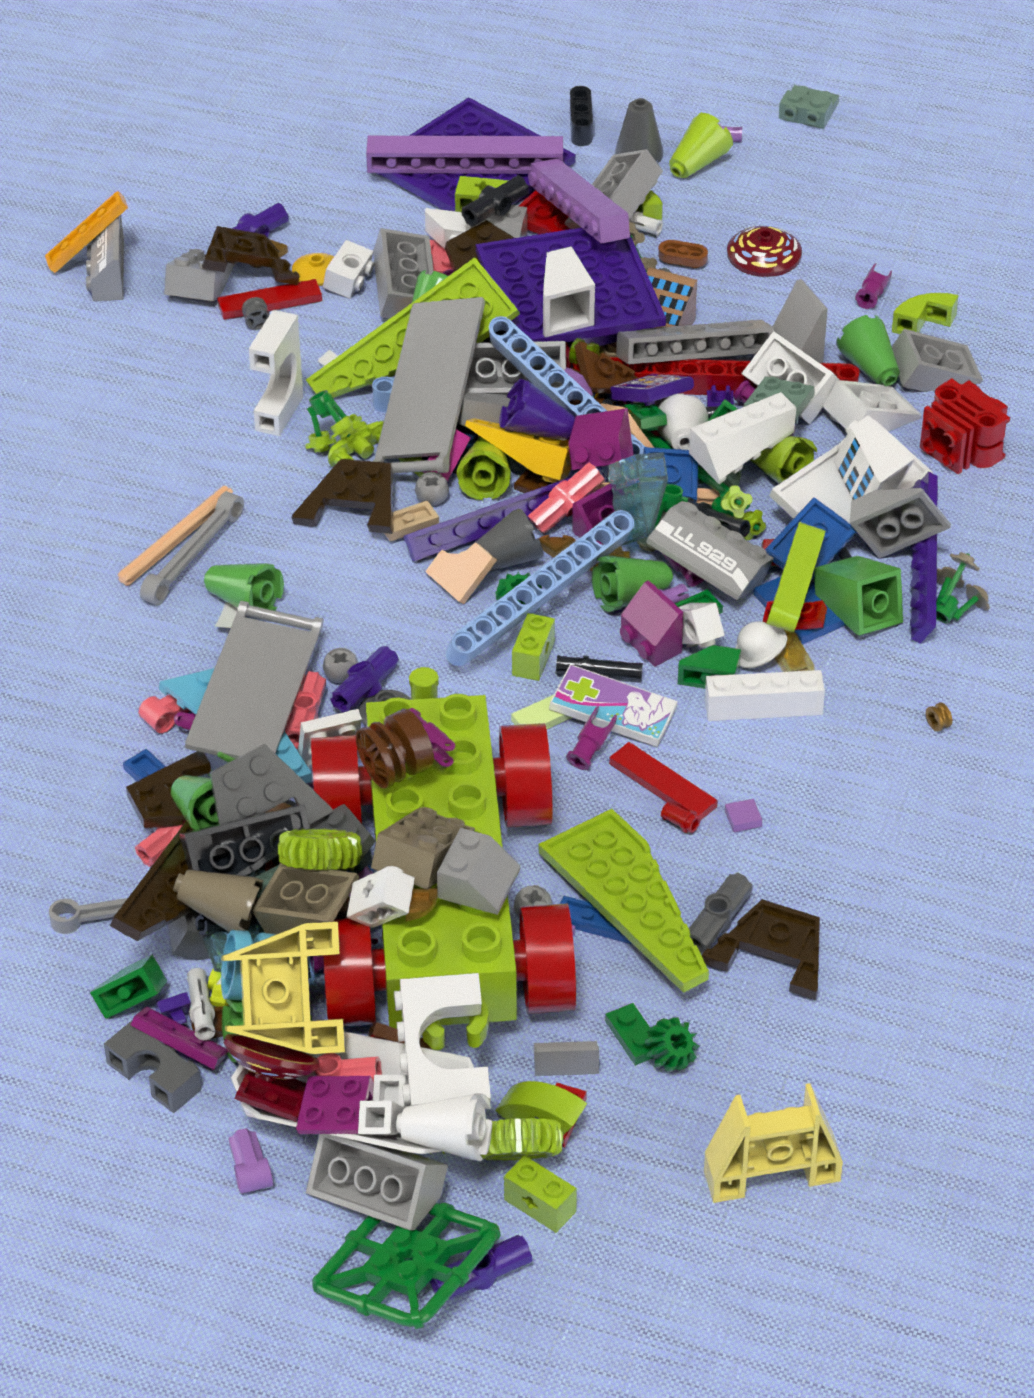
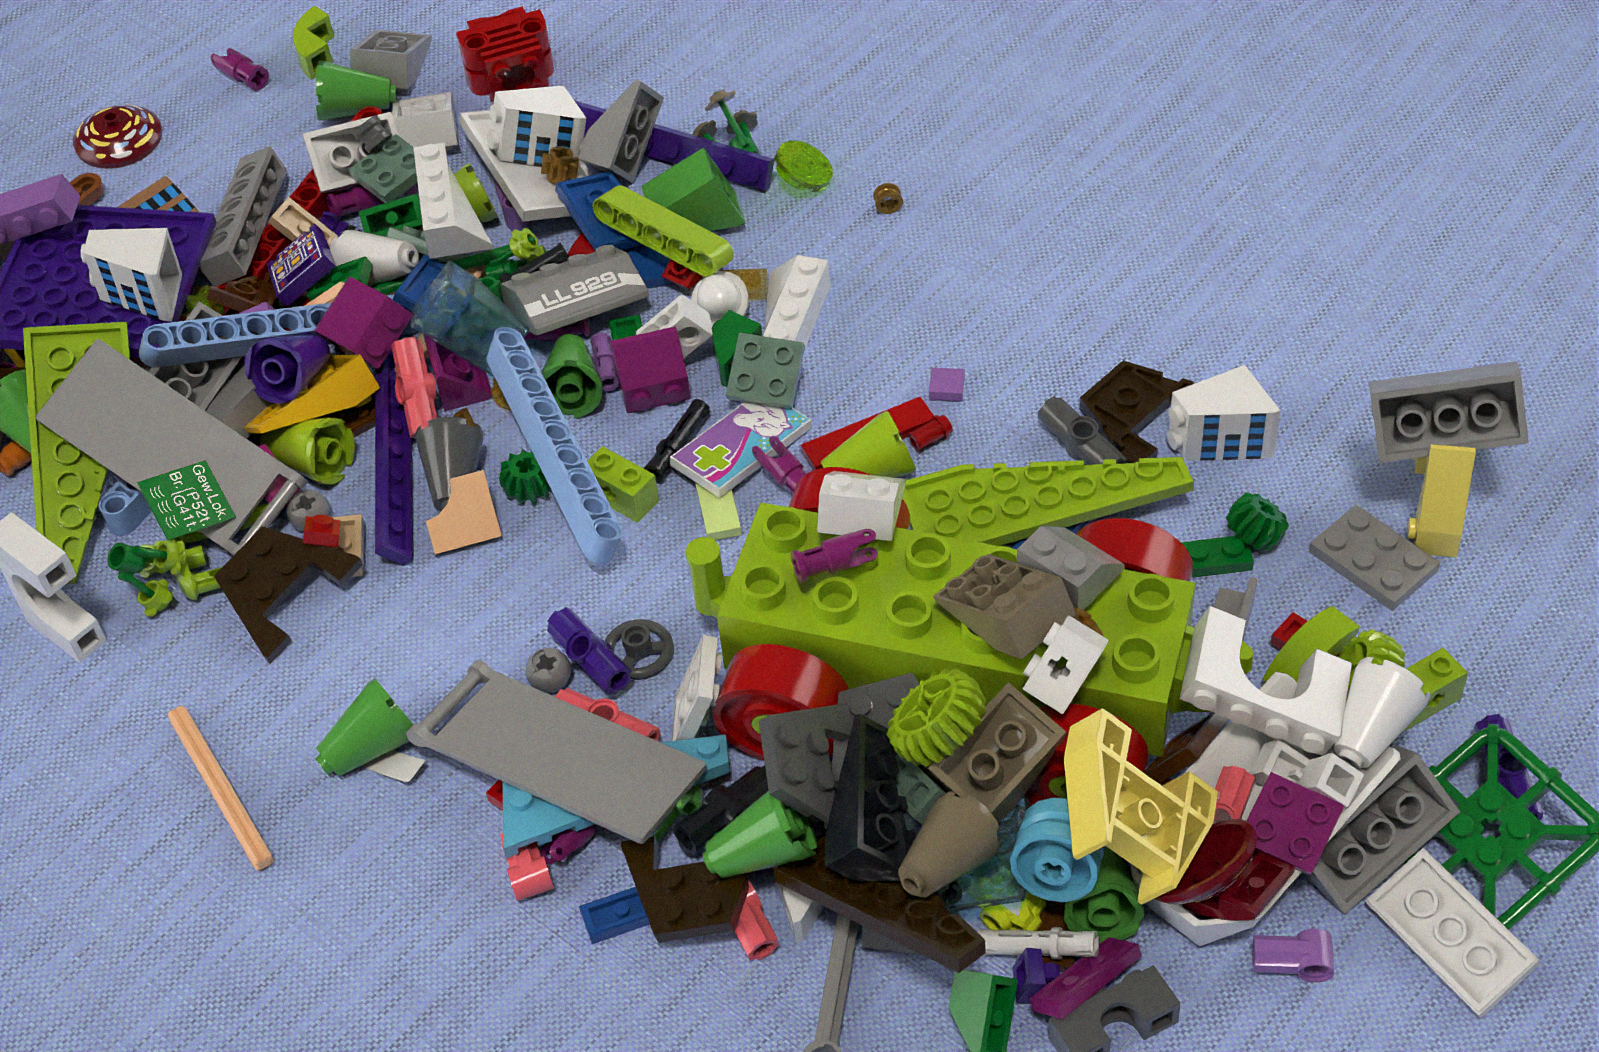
camera: 65 degrees left, 5 degrees up
(156, 587) = (302, 820): light grey piece -> none
(304, 1257) = (1452, 933): none -> white tile
(389, 413) = (186, 500): none -> green sticker
(394, 748) = (857, 581): reddish brown wheel -> none
(403, 496) = (321, 530): none -> red plate
(496, 740) = (859, 502): none -> white slope
(631, 783) = (874, 450): none -> lime cone
(678, 1142) = (1374, 557): none -> light grey plate
(682, 690) = (765, 370): none -> sand green plate
(699, 368) = (294, 220): none -> tan plate
(775, 992) = (1223, 419): none -> white slope
(781, 1095) = (1449, 408): none -> light grey slope
(799, 370) = (372, 133): none -> dark grey wheel
(803, 321) = (283, 114): light grey slope -> none
(842, 494) = (559, 165): none -> pearl gold gear
(943, 649) = (803, 166): none -> clear neon green tile

